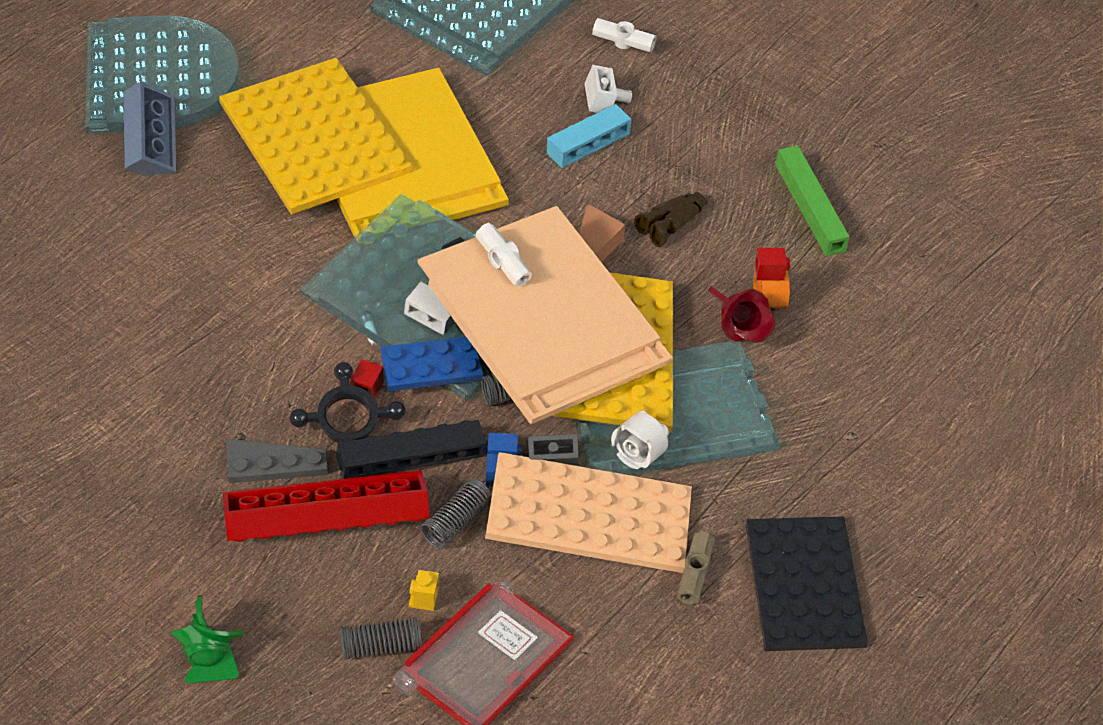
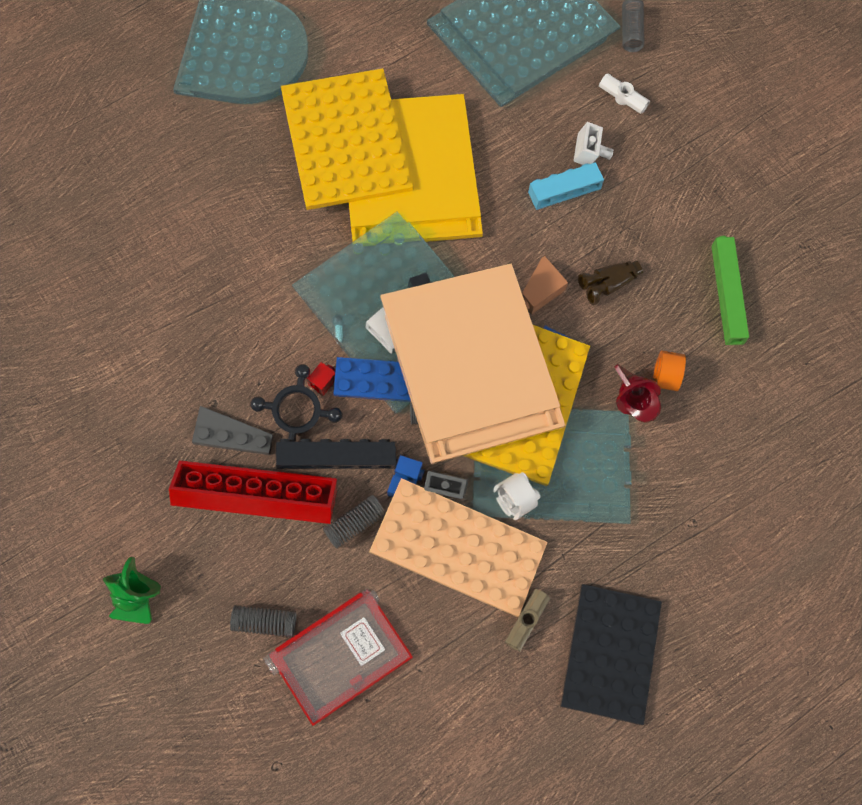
camera: 15 degrees right, 20 degrees up
(149, 130) = (218, 106): sand blue slope -> none
(424, 590) = (309, 585): yellow brick -> none
(503, 254) = (451, 306): white piece -> none
(771, 264) = (672, 359): red brick -> none

